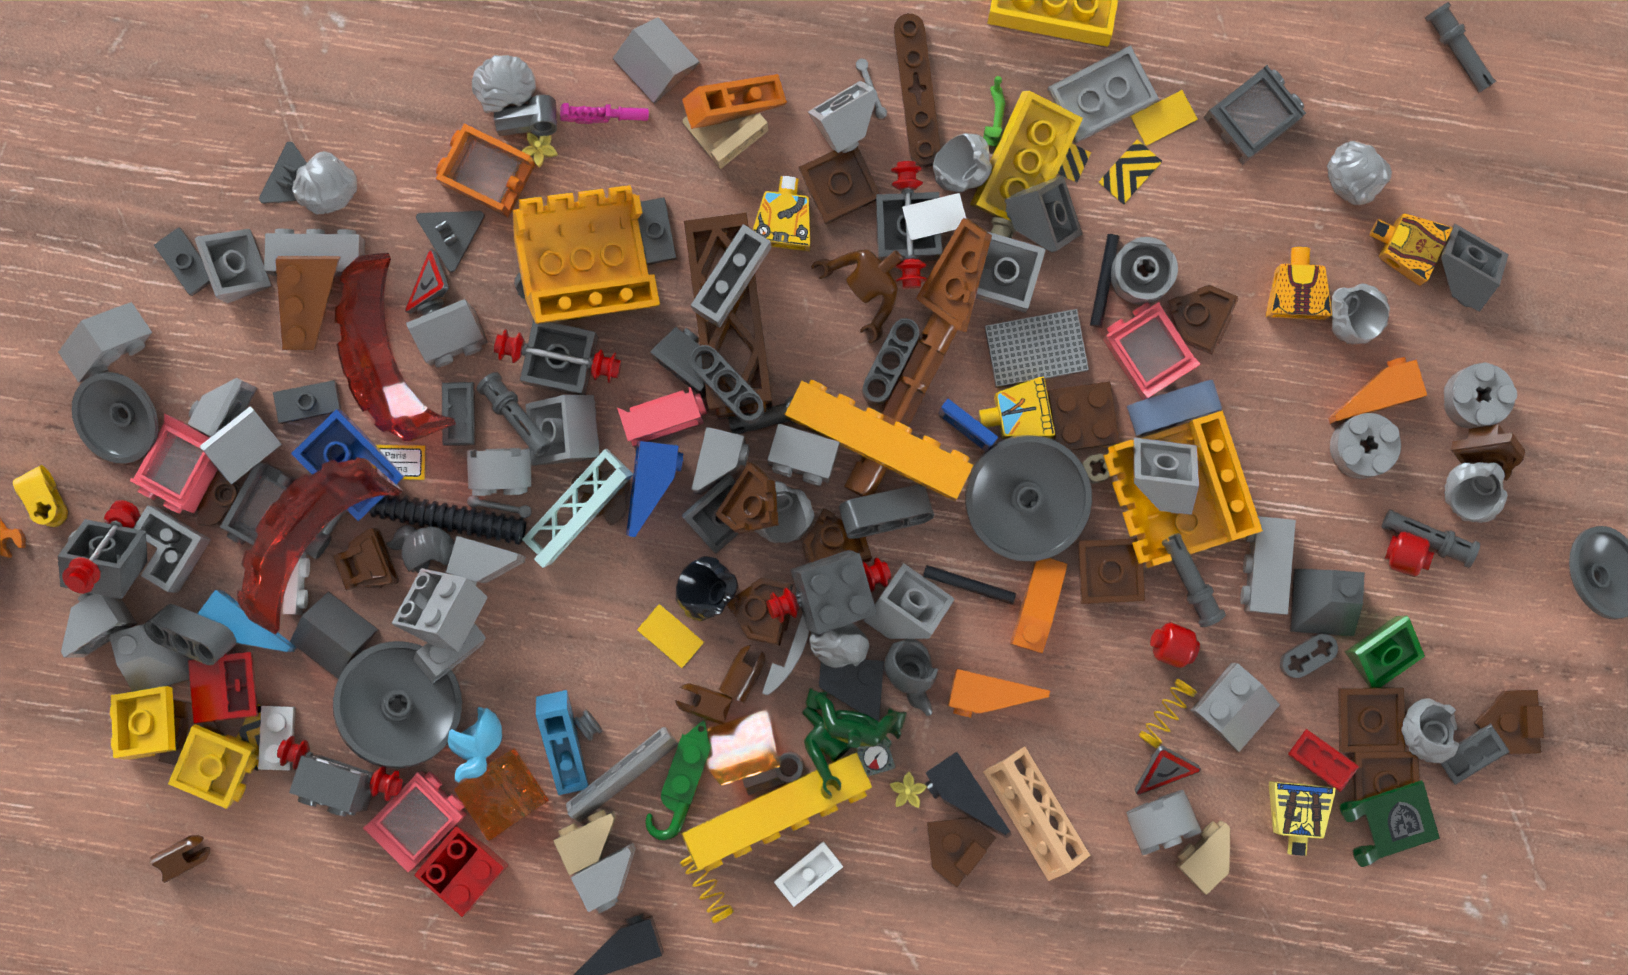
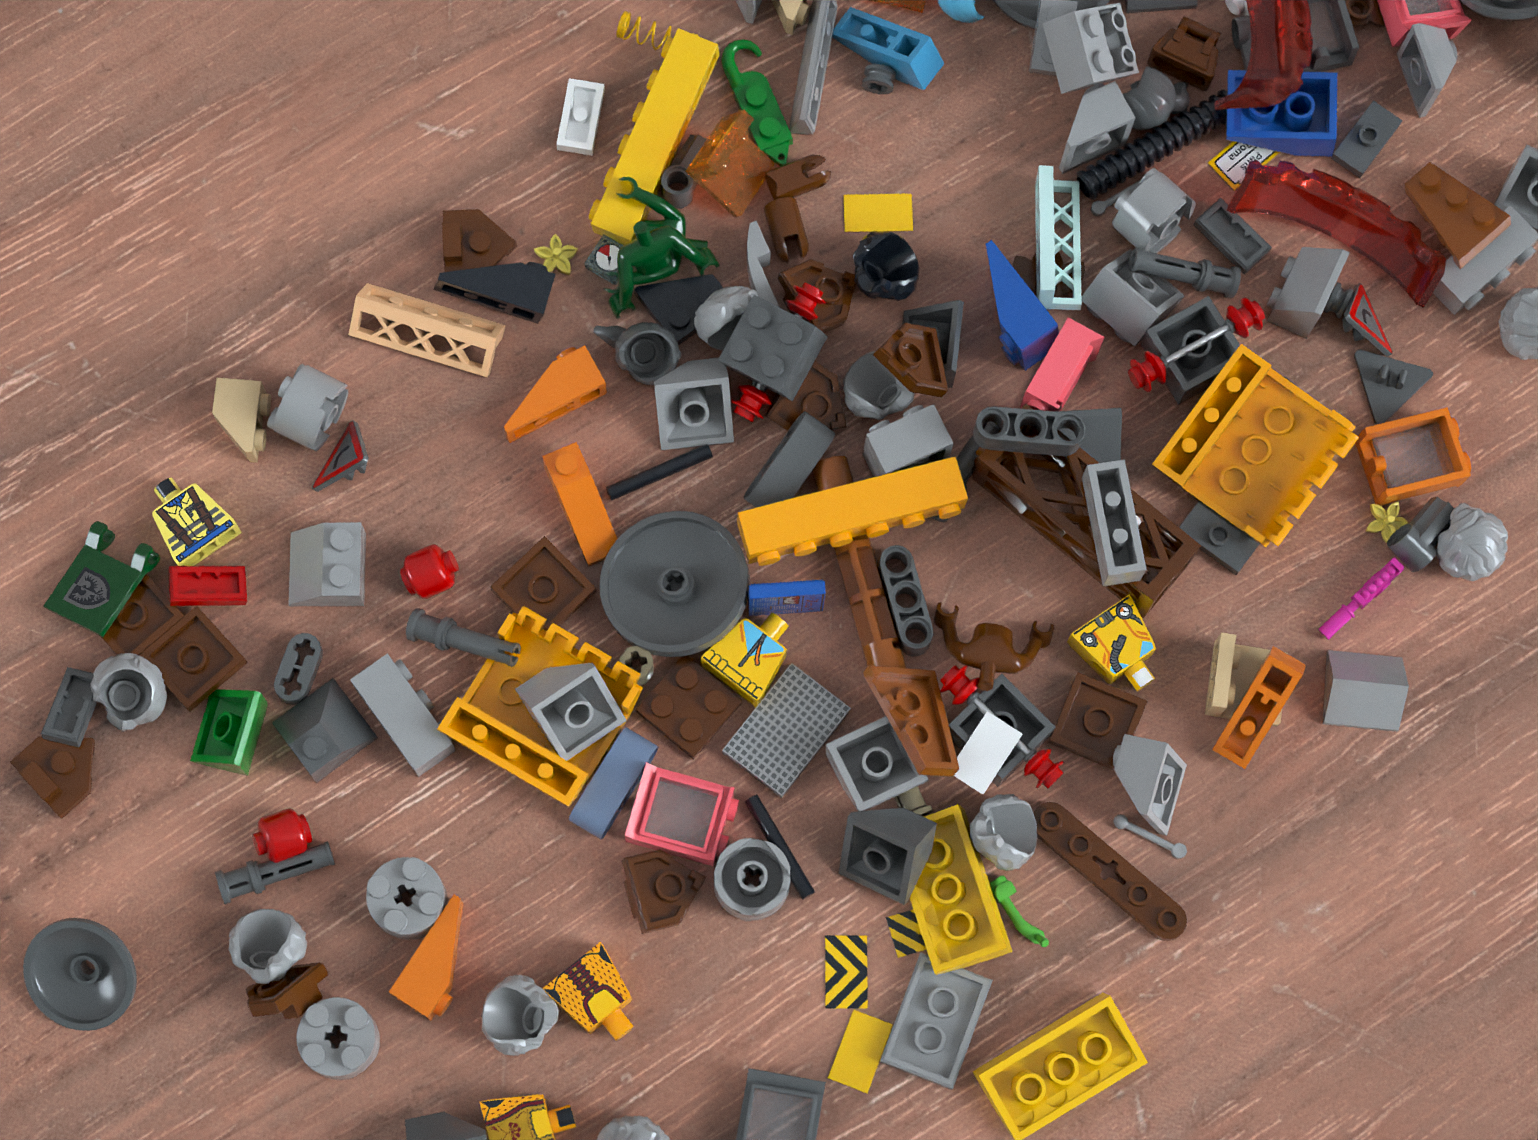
camera: 130 degrees right, 10 degrees down
(240, 445) = (1383, 44): light grey slope -> none
(719, 456) = (977, 381): light grey slope -> none
(1184, 688) = (383, 473): yellow piece -> none

